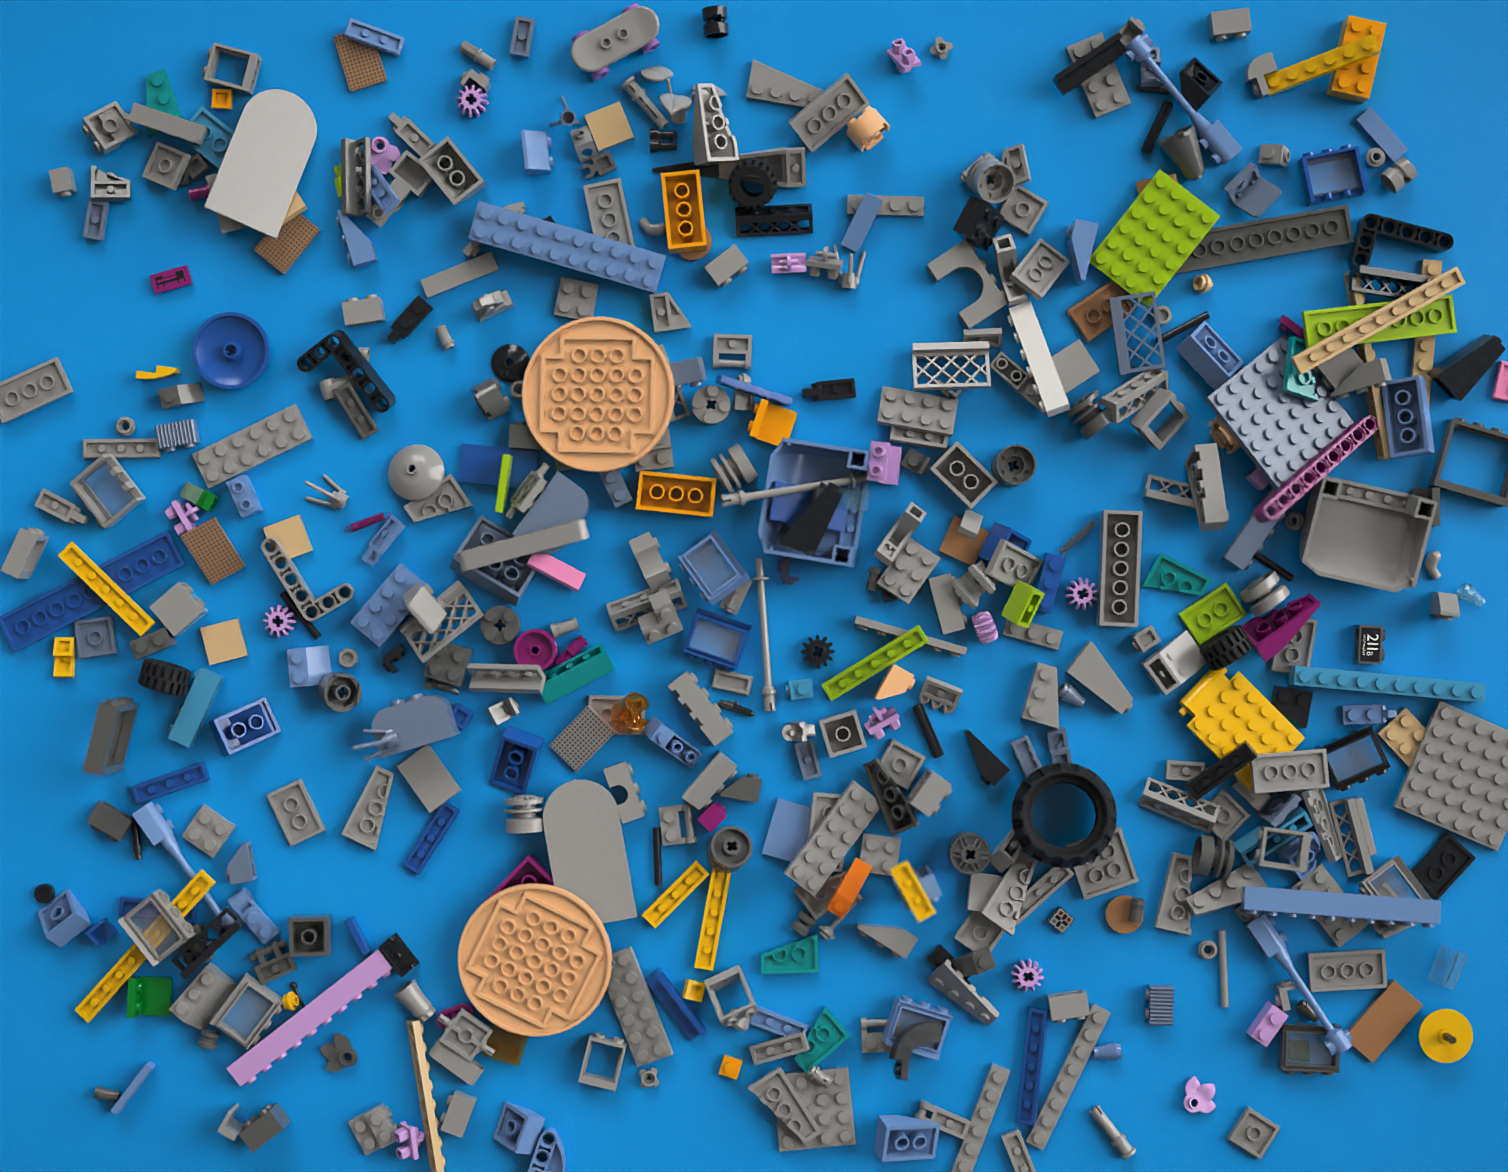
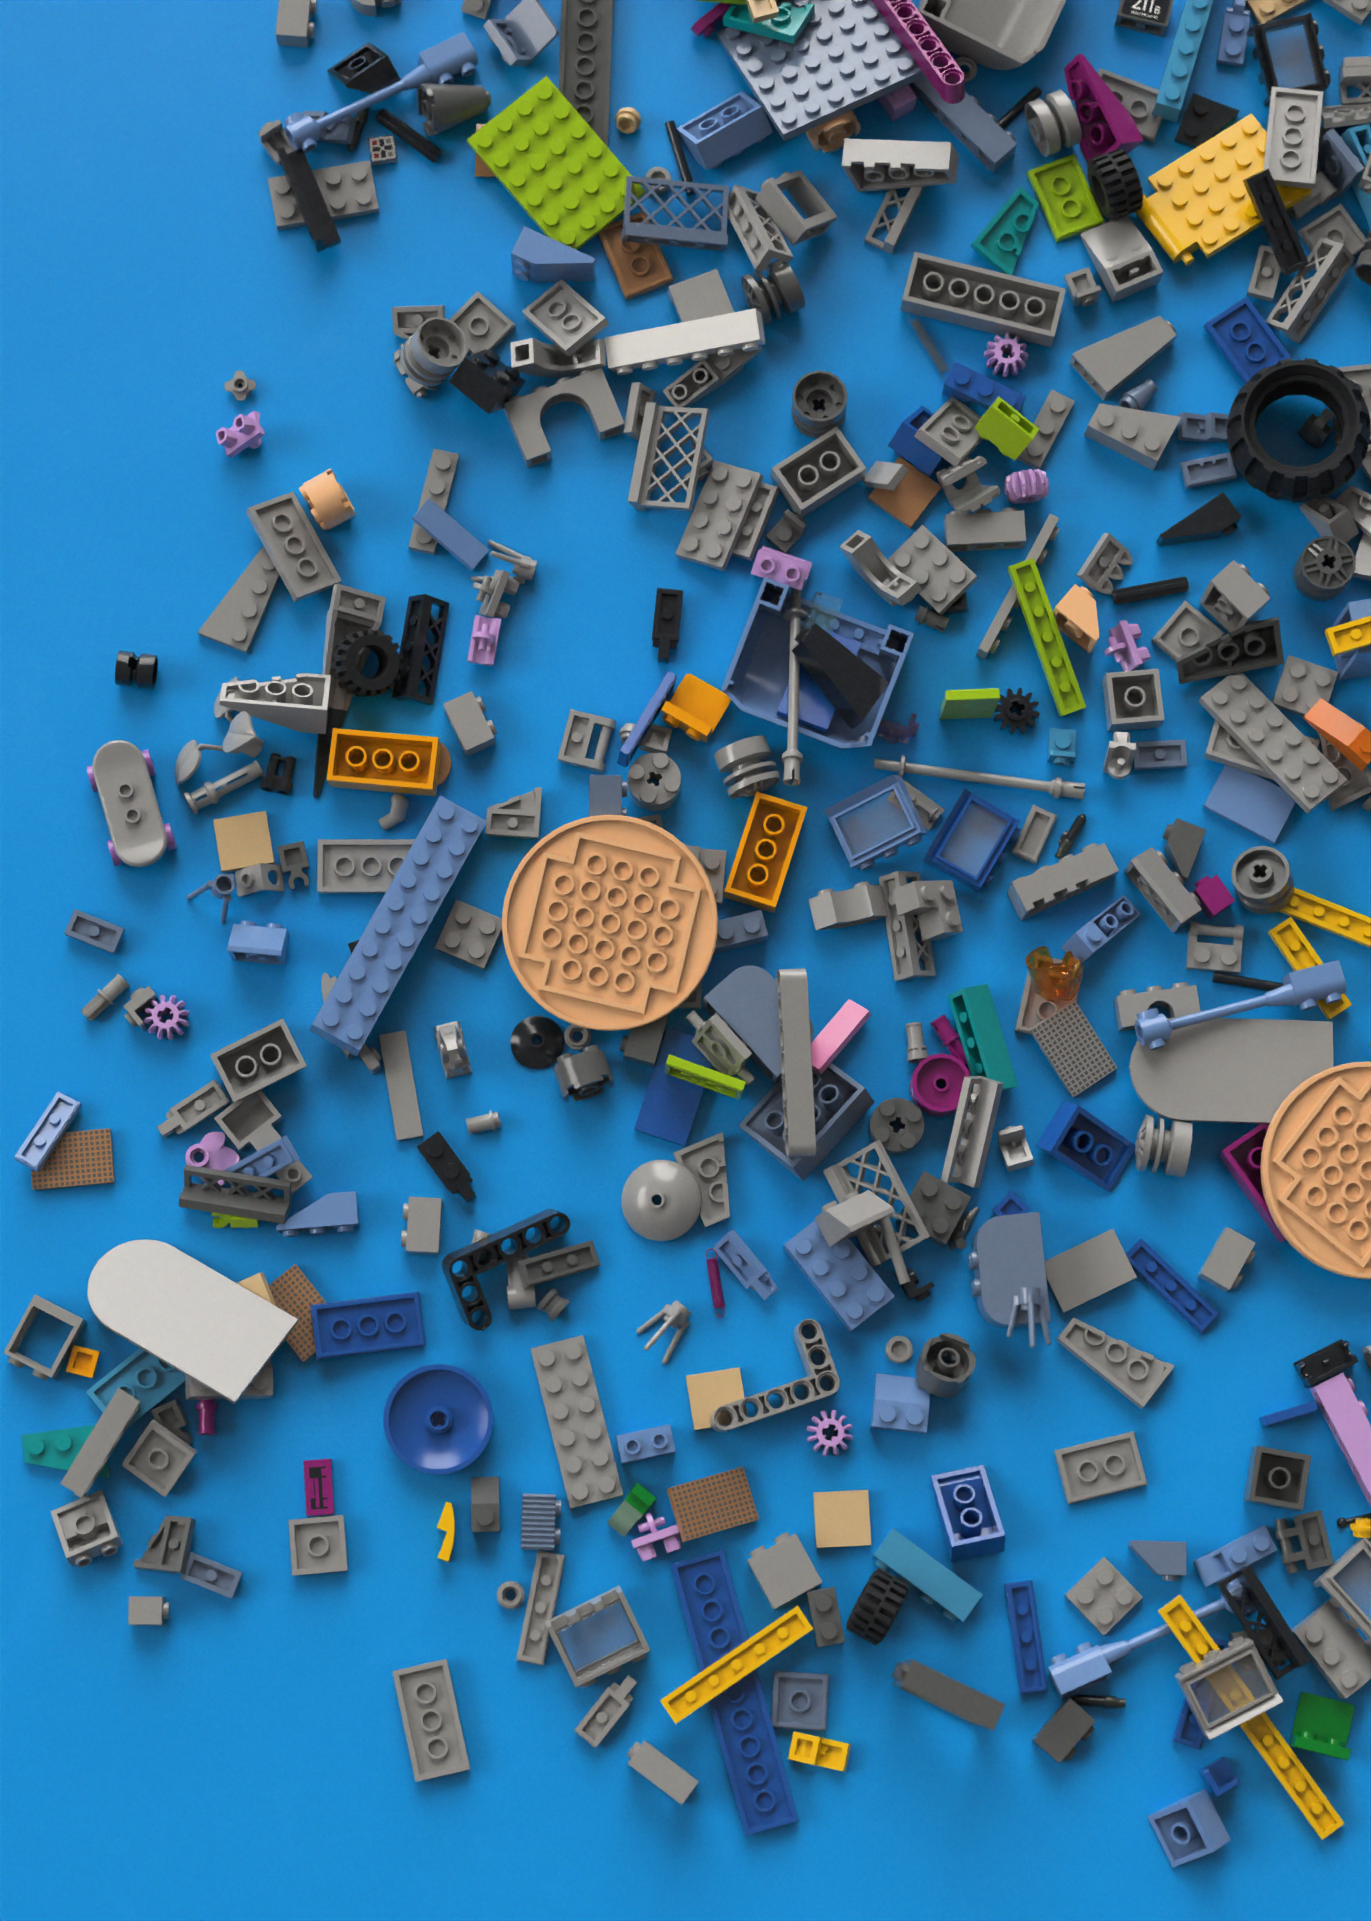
camera: 90 degrees left, 10 degrees down
(44, 893) = (1148, 1850): black tile -> none
(131, 287) = (318, 1545): none -> light grey plate
(287, 288) = (367, 1325): none -> blue tile
(308, 625) = (826, 1403): black bar -> none
(328, 413) = (553, 1304): none -> dark grey wheel
(409, 641) = (894, 1250): none -> light grey bar
(456, 873) = (1227, 1260): none -> light grey brick
(655, 890) = (1299, 988): none -> medium blue bar
(811, 615) = (969, 703): none -> lime tile
(1072, 828) = (1316, 429): none -> dark grey plate
(1129, 766) = (1245, 339): none -> blue plate
(1141, 110) = (382, 150): none -> tile

